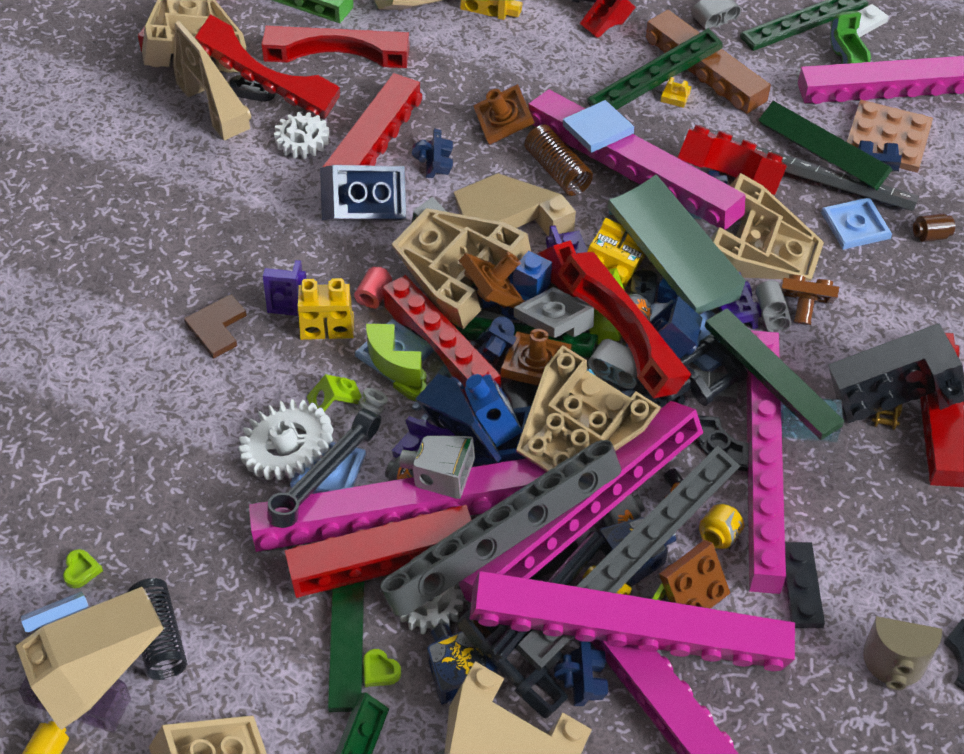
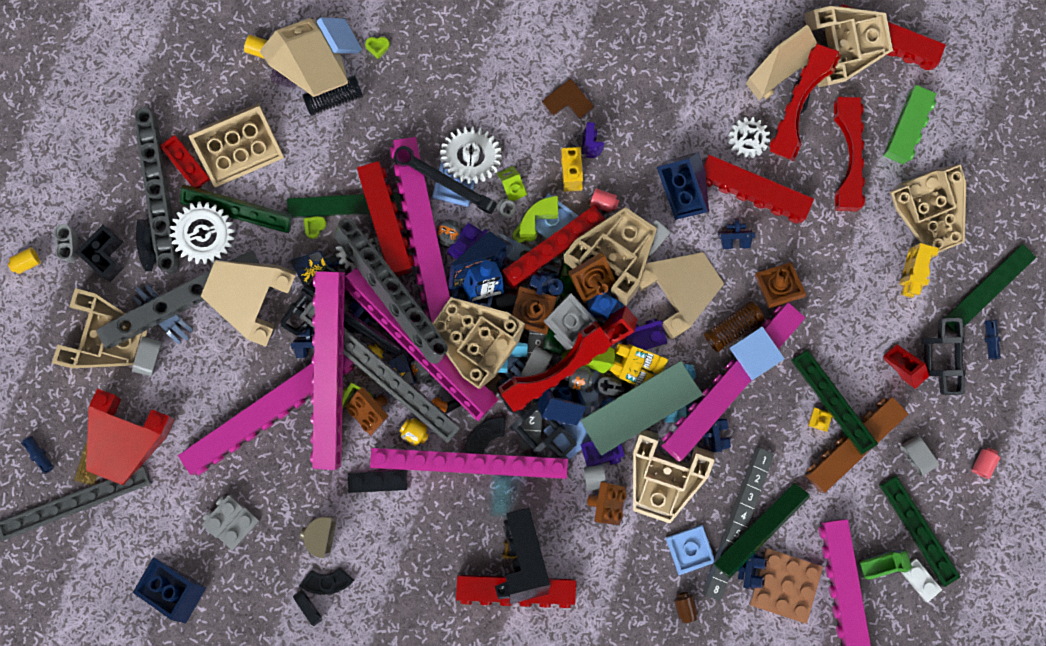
camera: 85 degrees right, 30 degrees up
(441, 464) = (439, 250): light grey torso -> none
(732, 157) = (741, 459): red brick -> none
(774, 374) = (524, 469): dark green tile -> none

